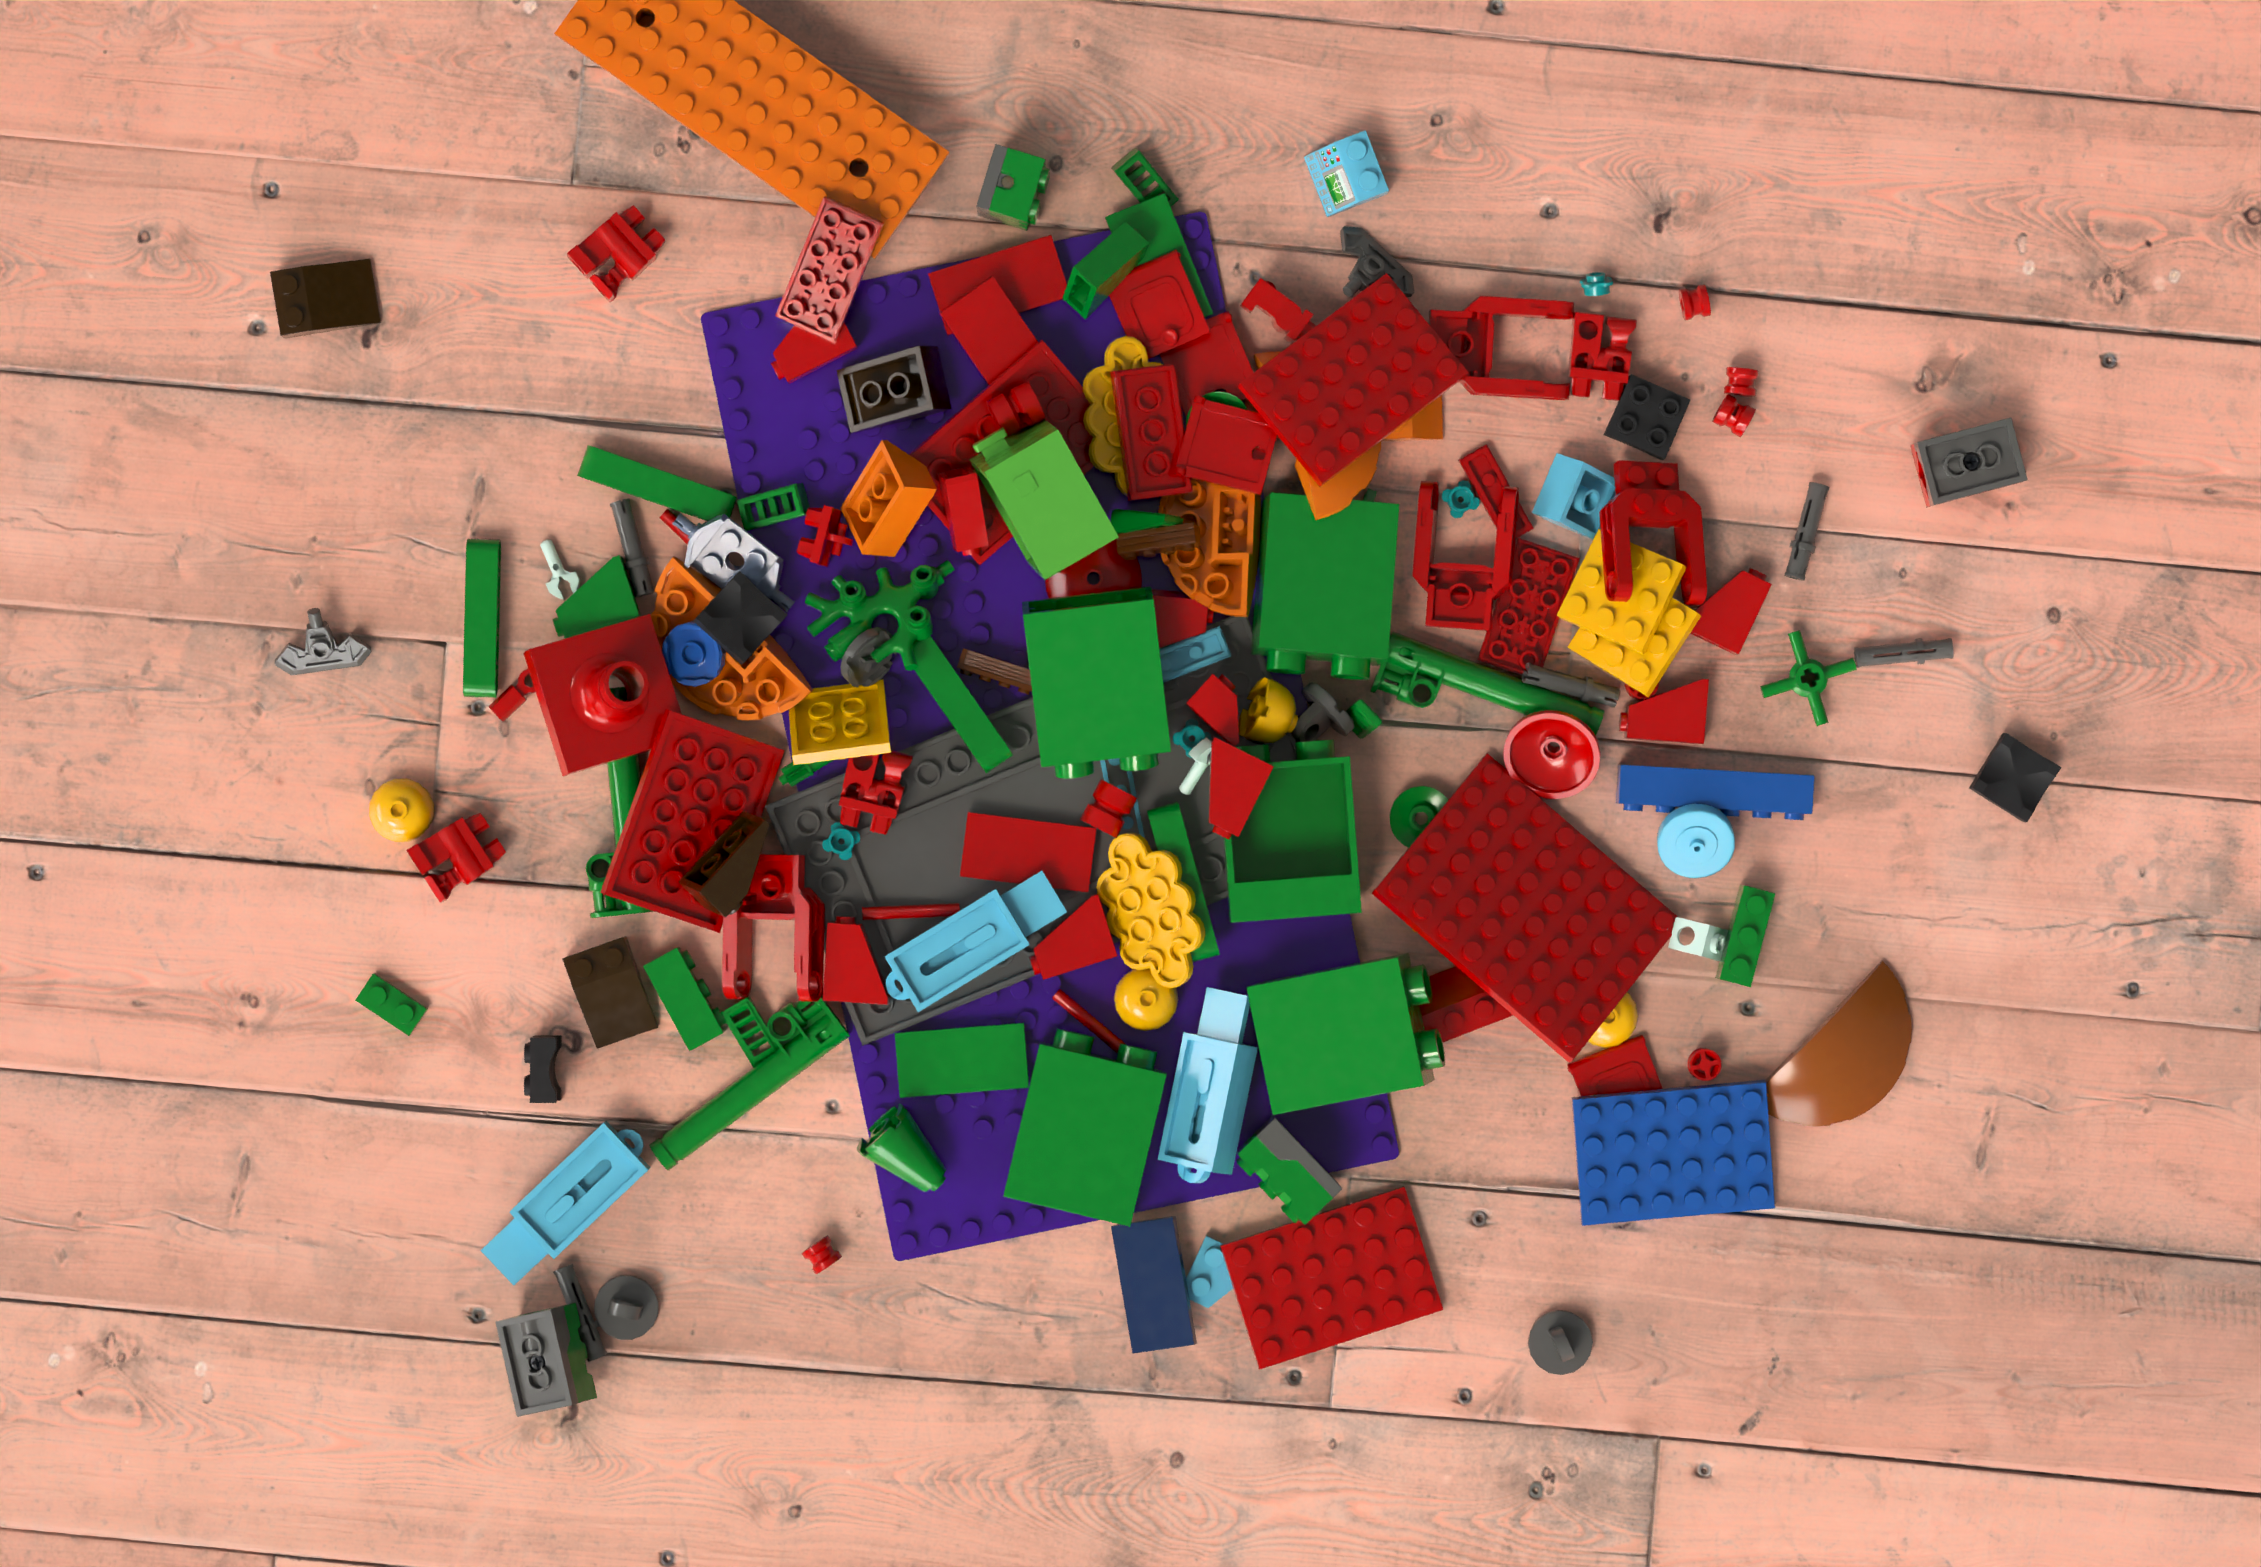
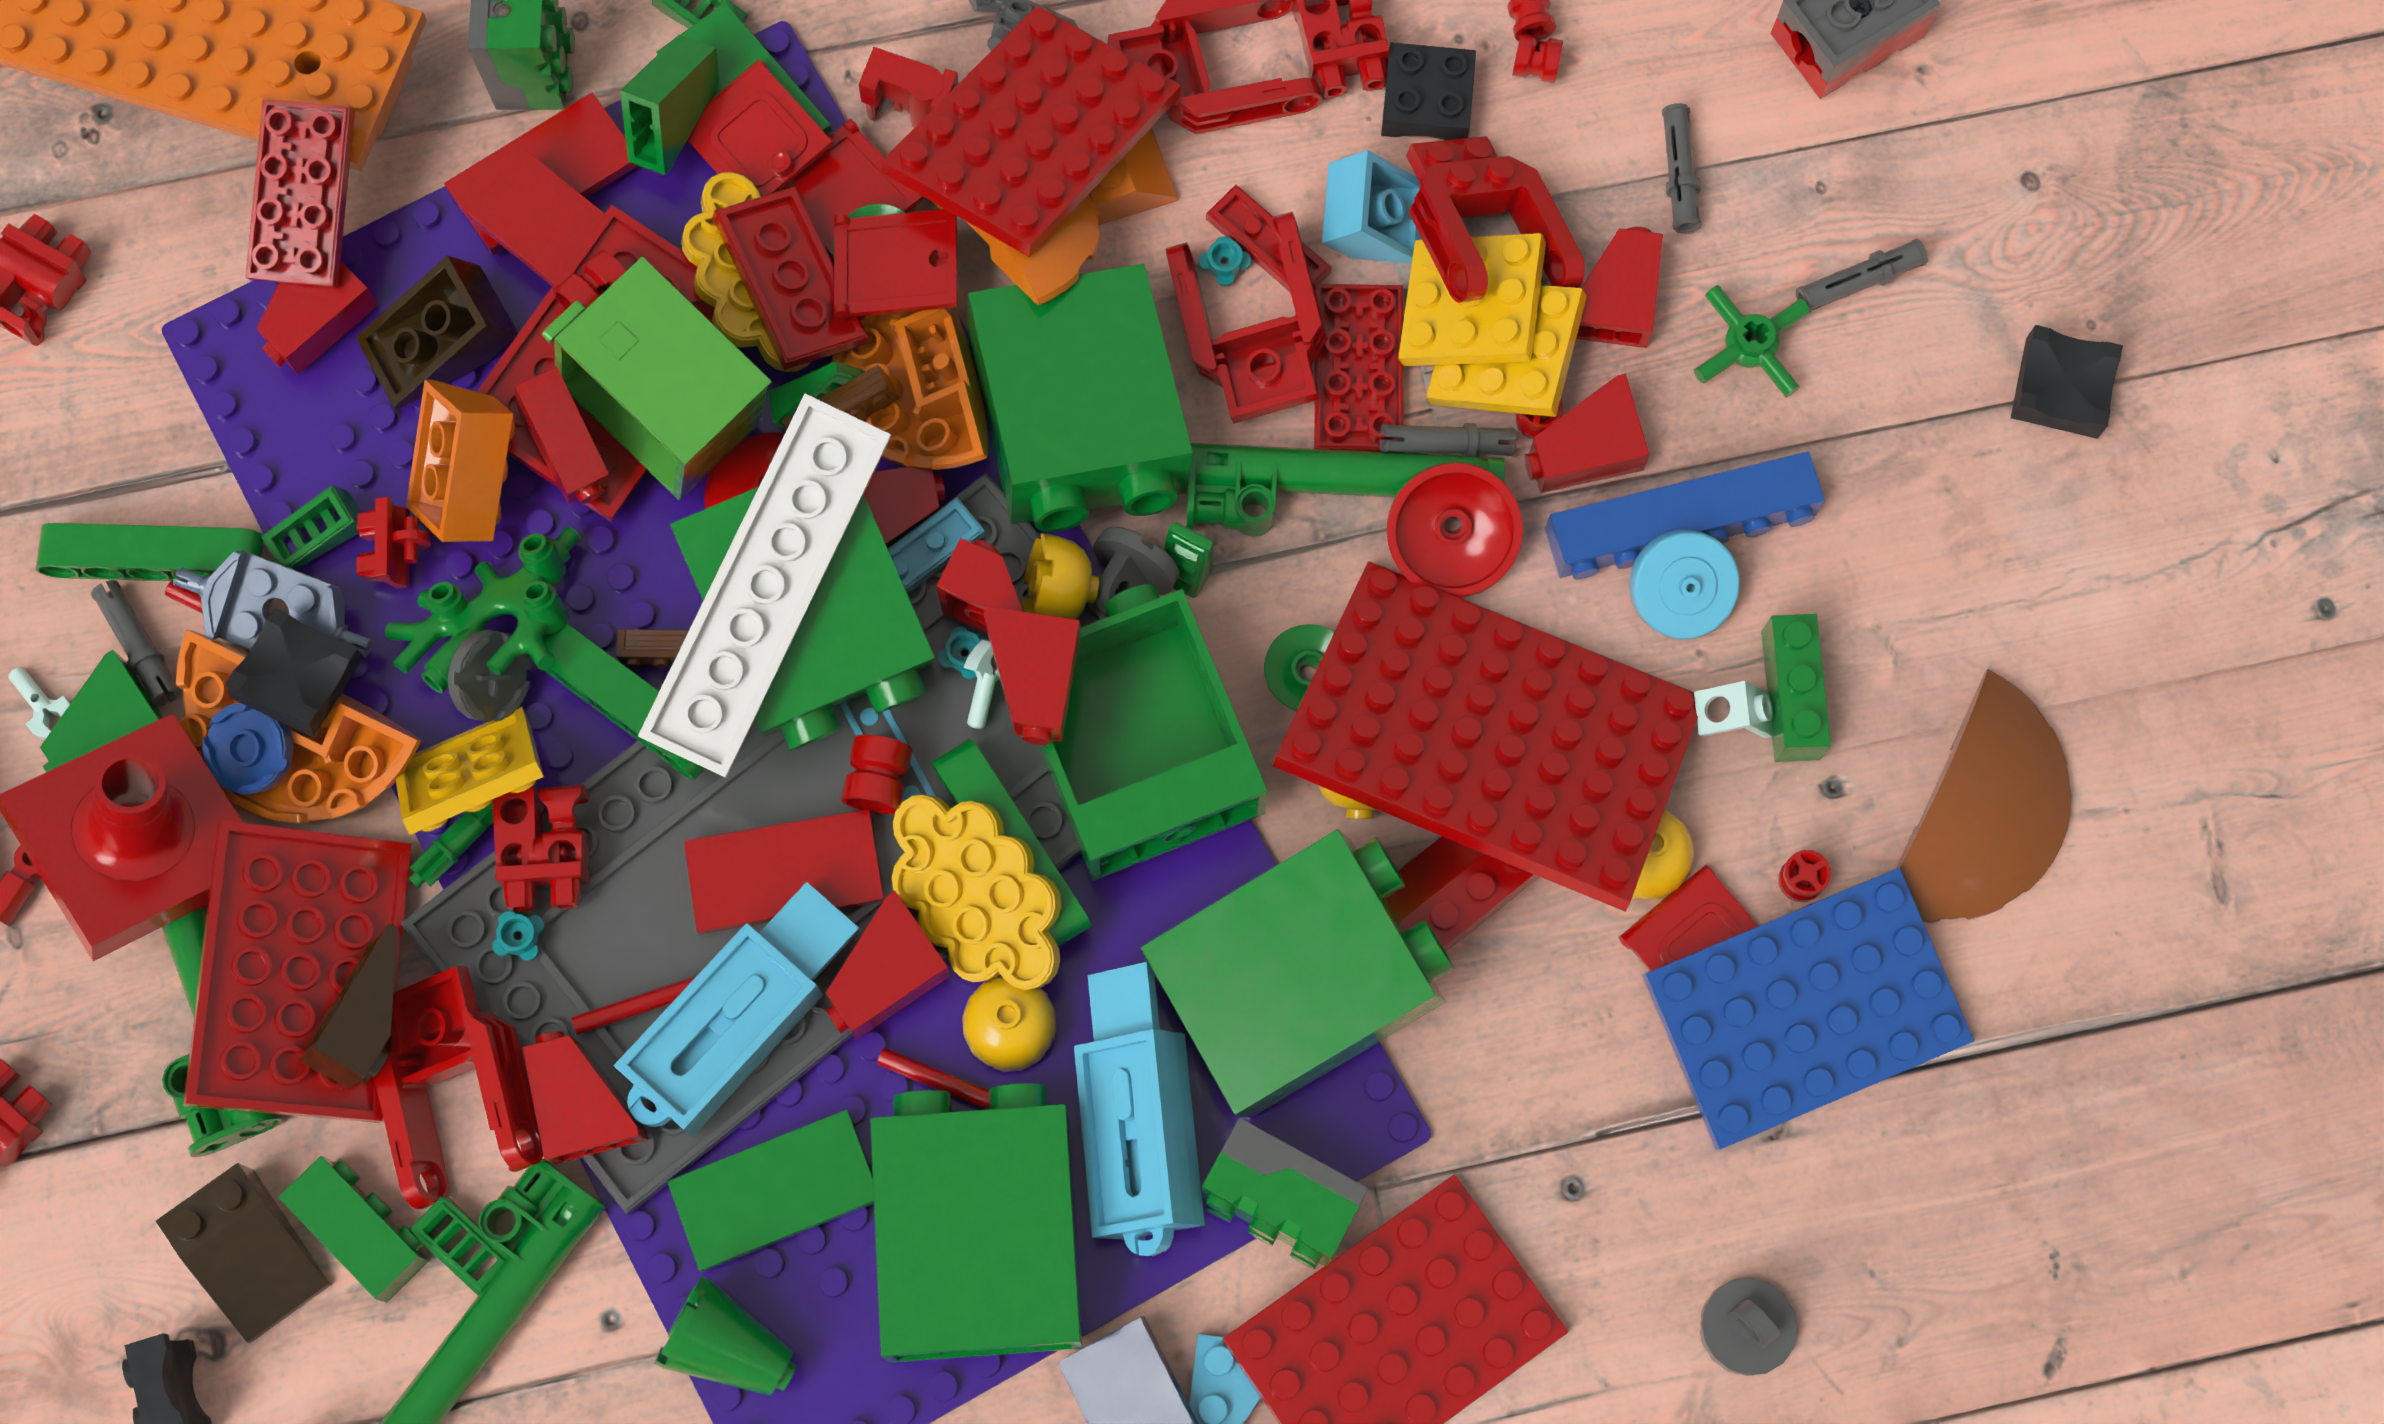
camera: 20 degrees left, 15 degrees down
(1074, 676) = (764, 586): none -> white plate

